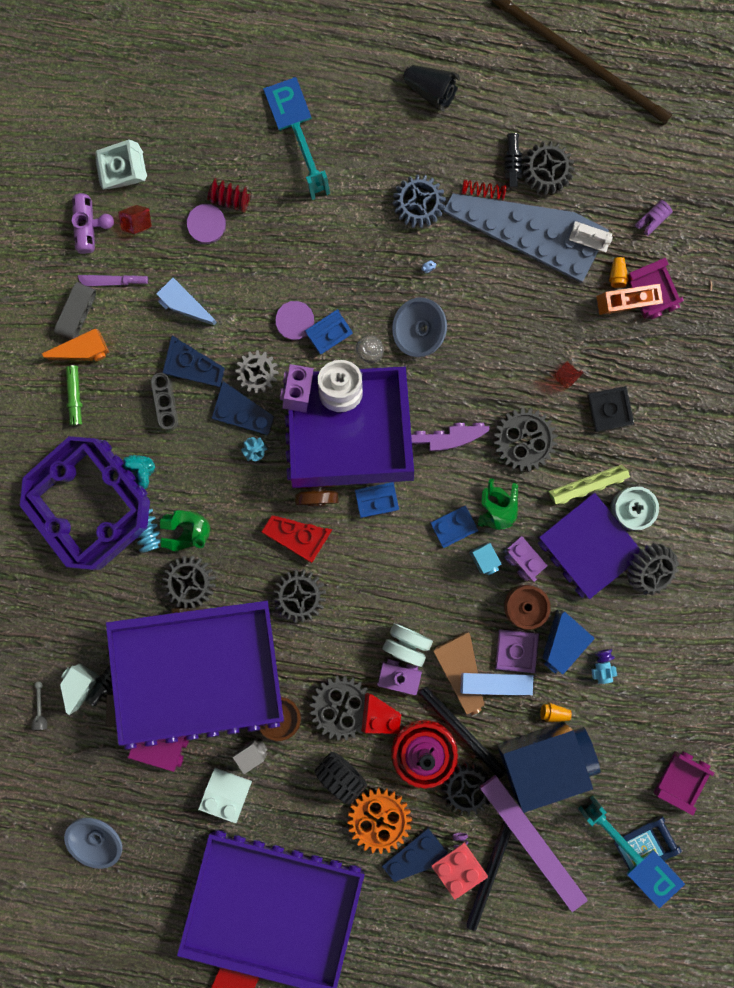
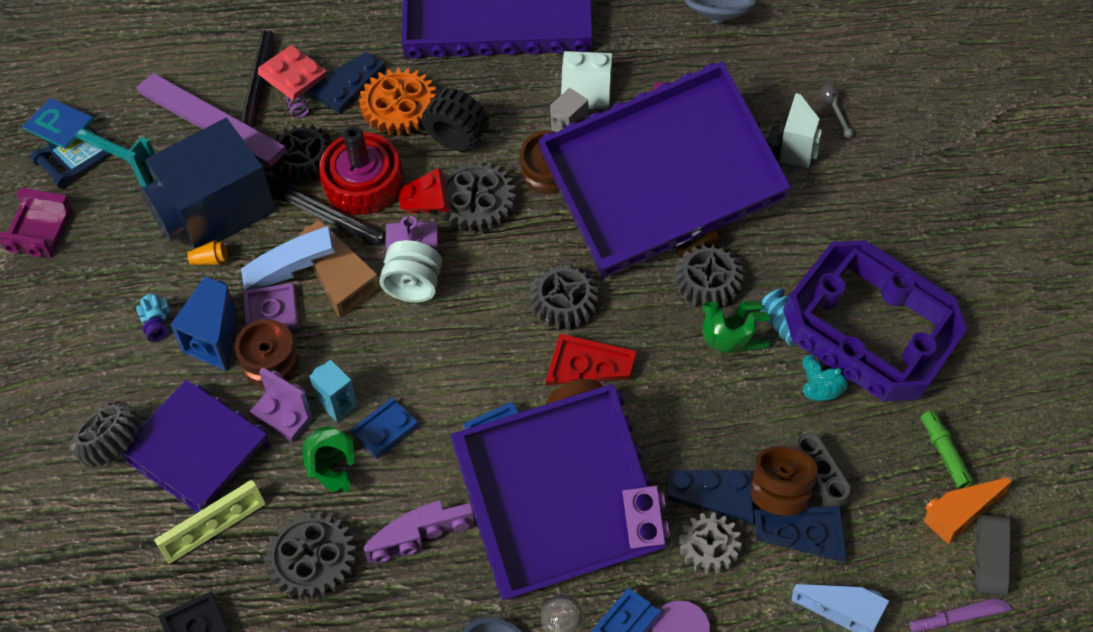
camera: 175 degrees right, 30 degrees down
(193, 396) = (783, 480): none -> reddish brown wheel
(254, 449) = (680, 445): medium azure gear -> none
(340, 385) = (601, 527): white wheel -> none
(646, 508) = (141, 505): light aqua wheel -> none

